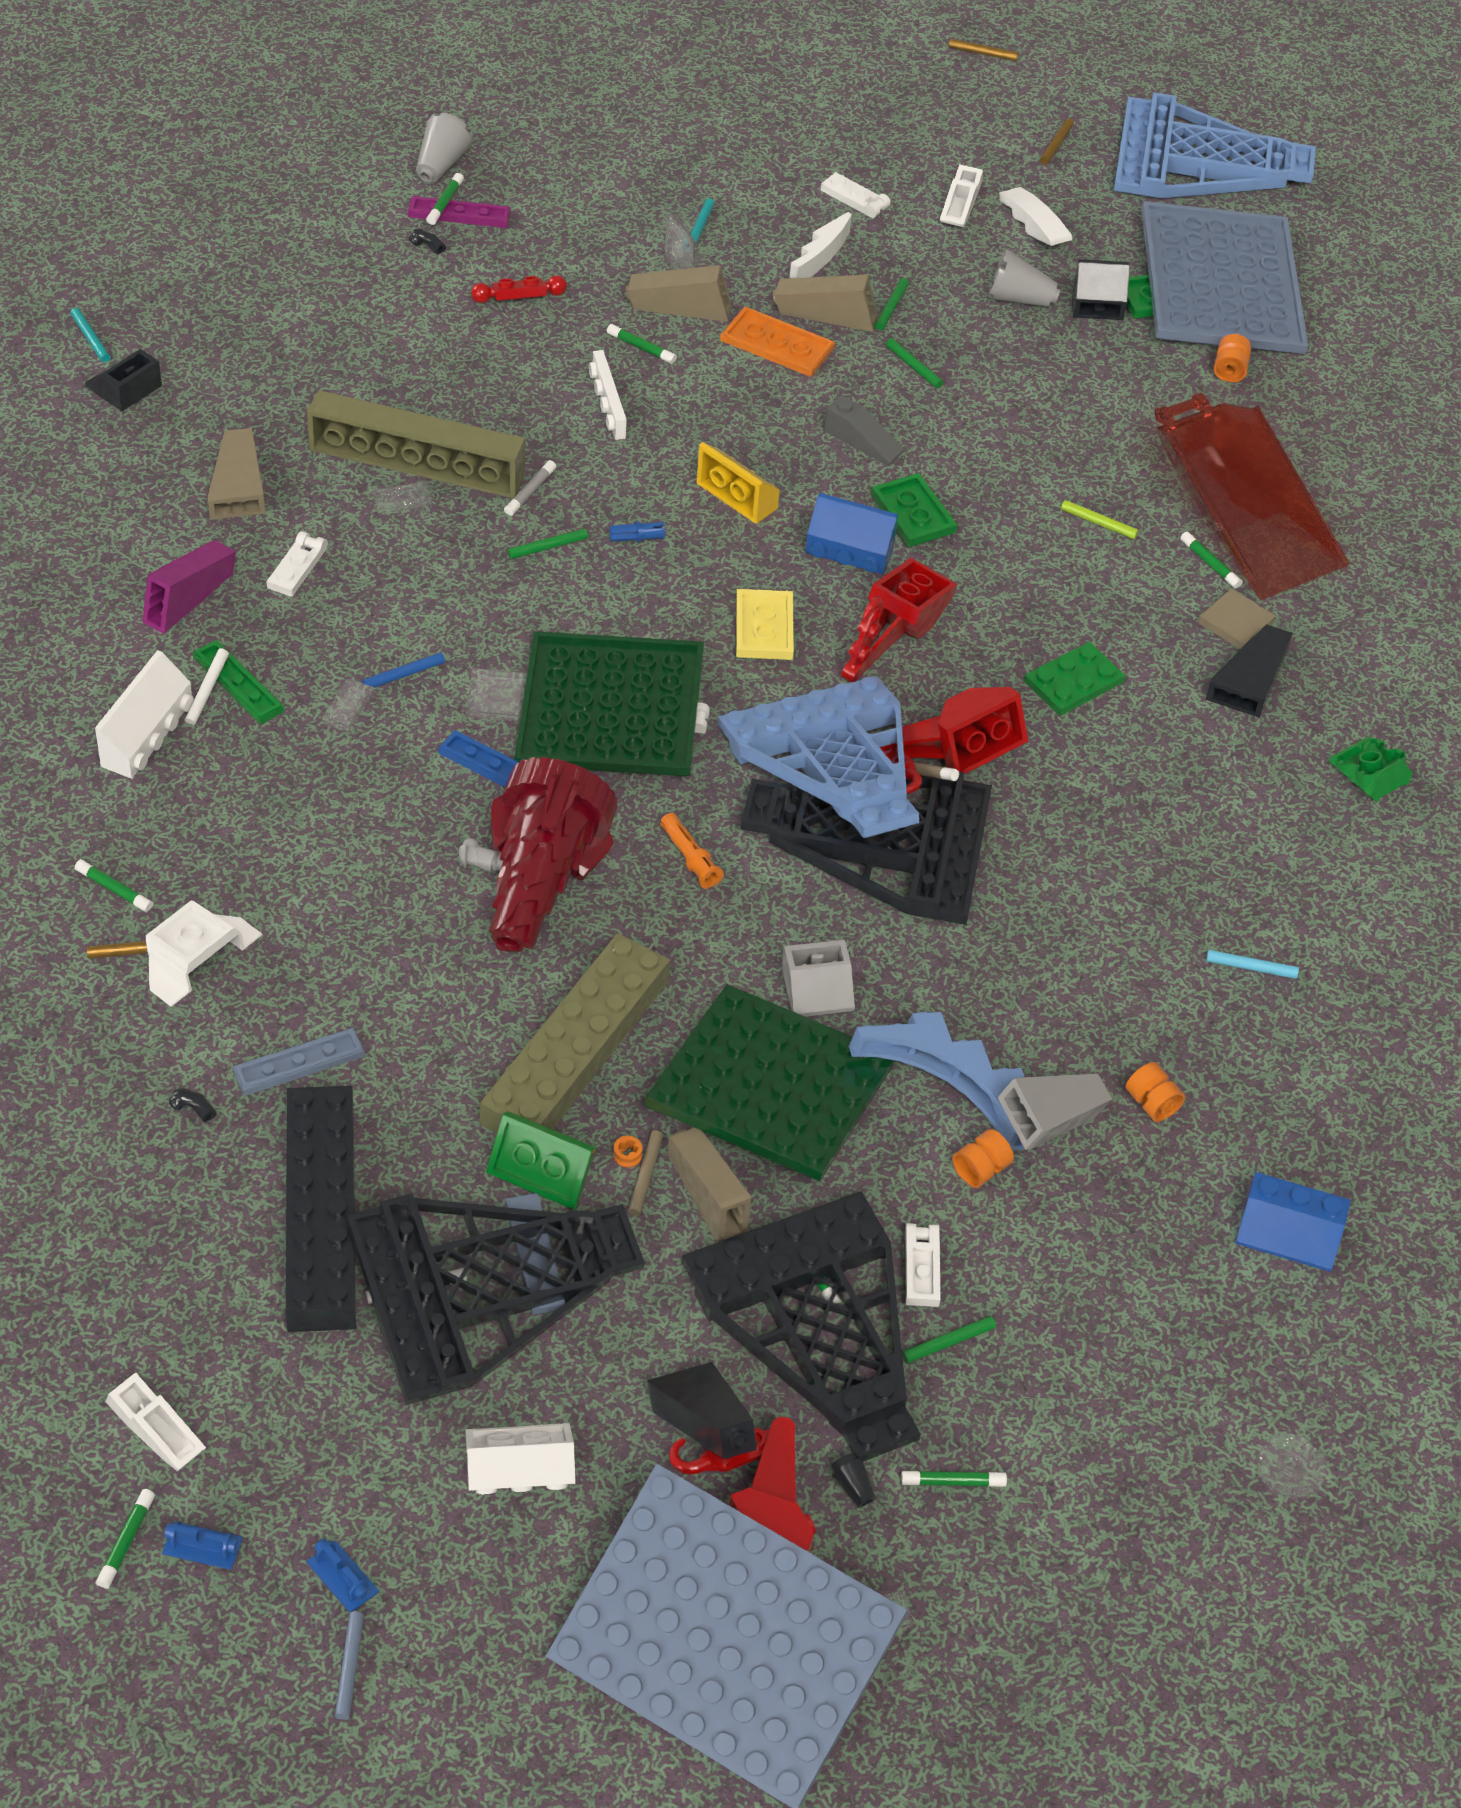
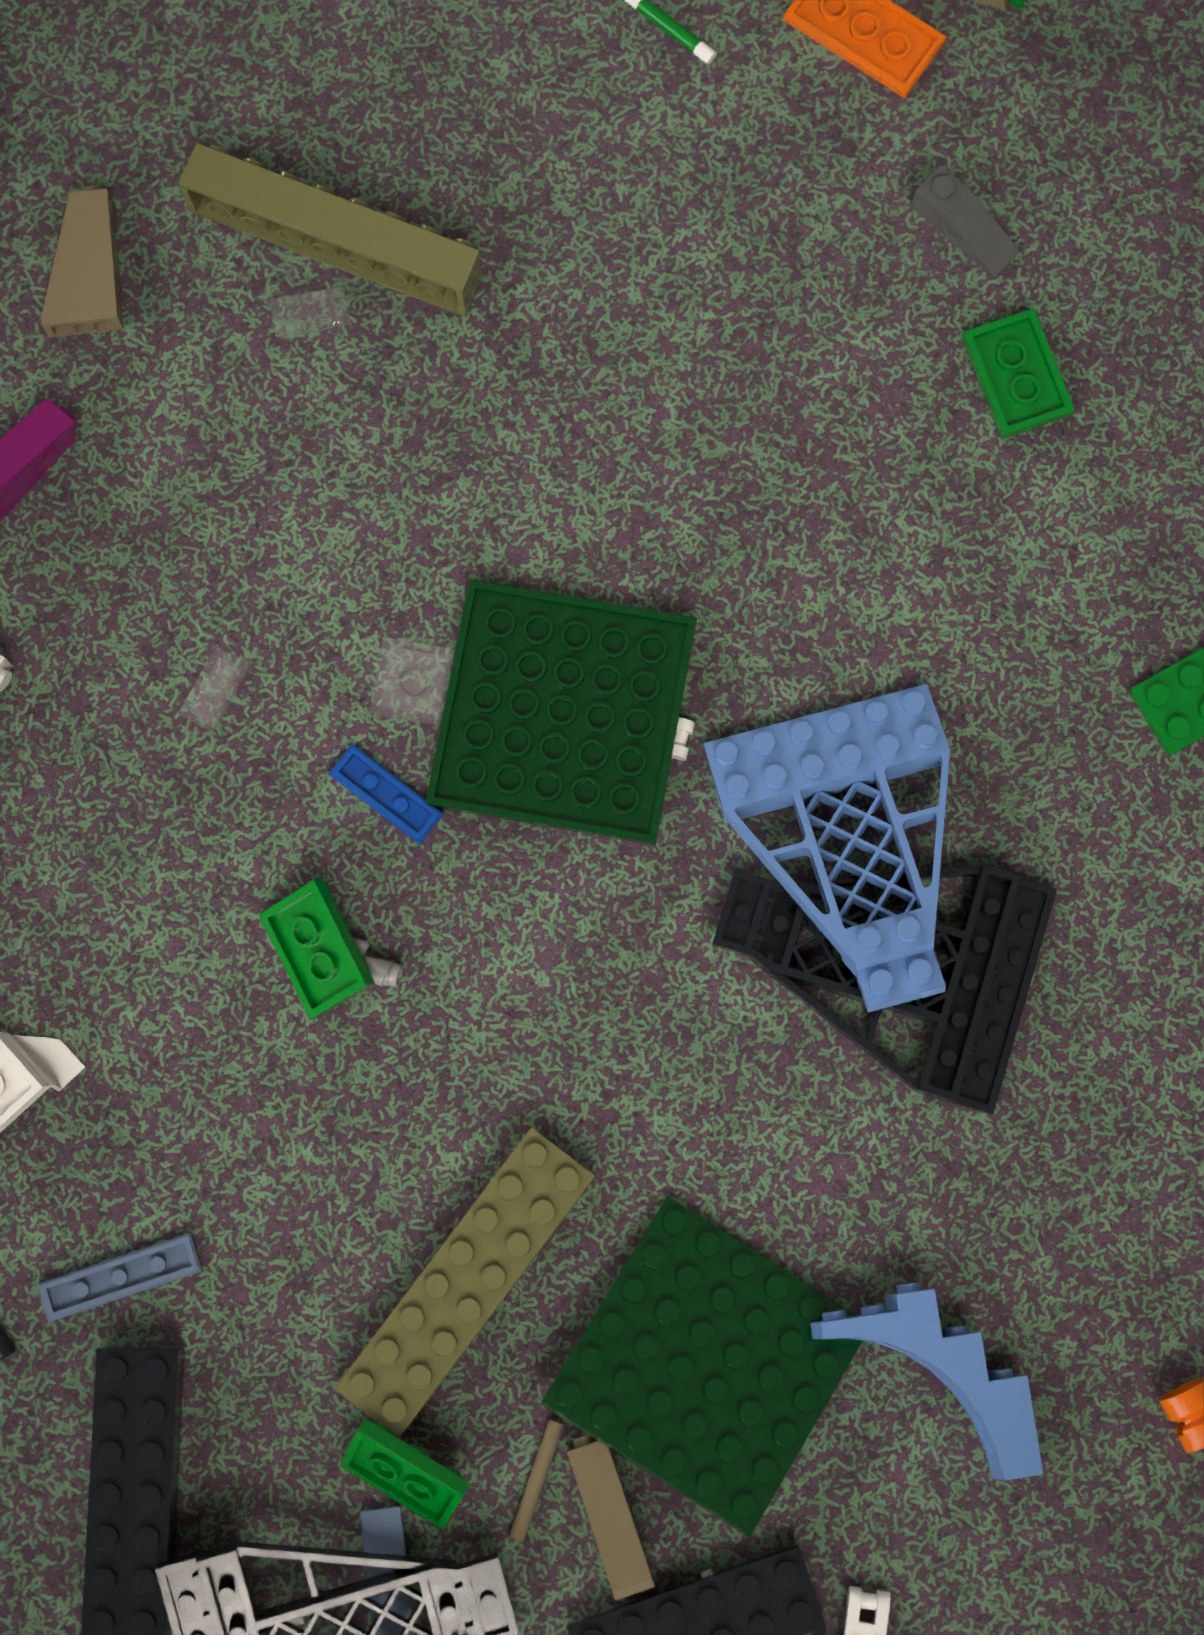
camera: 10 degrees right, 30 degrees up
(206, 686) = (29, 652): white bar -> none
(241, 684) = (72, 639): green tile -> none
(297, 564) = (160, 431): white plate -> none
(405, 670) = (292, 631): blue bar -> none
(439, 843) = (316, 948): none -> green plate
(530, 488) = (488, 301): light grey bar -> none
(545, 827) = (456, 964): dark red cone -> none
(547, 543) = (503, 408): green bar -> none
(609, 397) = (611, 148): white plate -> none
(634, 1157) = (512, 1437): orange bush -> none
(637, 531) = (627, 396): blue axle -> none
(697, 859) = (650, 987): orange pin -> none
(735, 484) = (775, 318): yellow slope -> none
(764, 624) = (785, 577): light yellow plate -> none
(818, 978) = (785, 1206): light grey slope -> none
(851, 533) = (921, 431): slope -> none
(908, 598) = (981, 571): red slope -> none
(914, 363) = (1056, 80): green bar -> none
(937, 771) = (972, 869): bar -> none
(968, 733) = (1029, 814): red slope -> none
(983, 1158) = (959, 1502): orange wheel -> none
(1052, 1105) = (1058, 1451): light grey slope -> none

